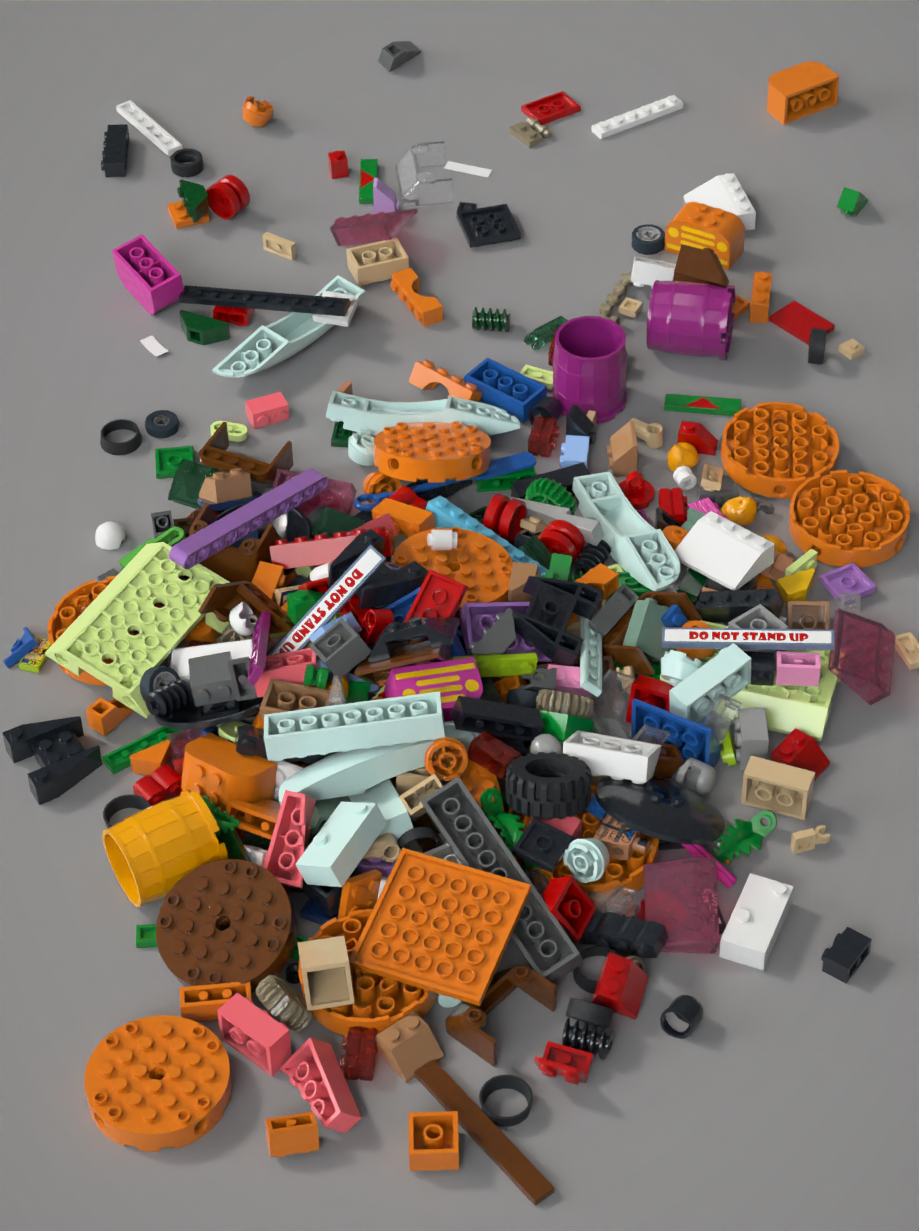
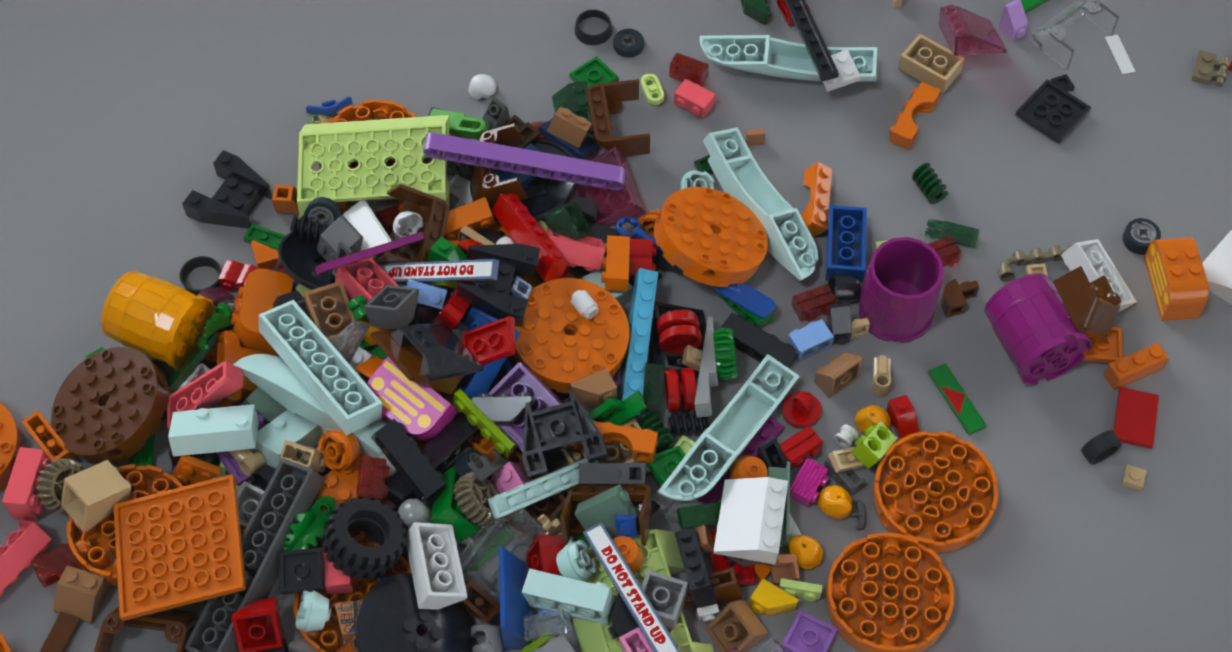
camera: 55 degrees right, 15 degrees up
(233, 397) = (685, 67): none -> clear red brick
(711, 459) = (874, 444): none -> lime brick

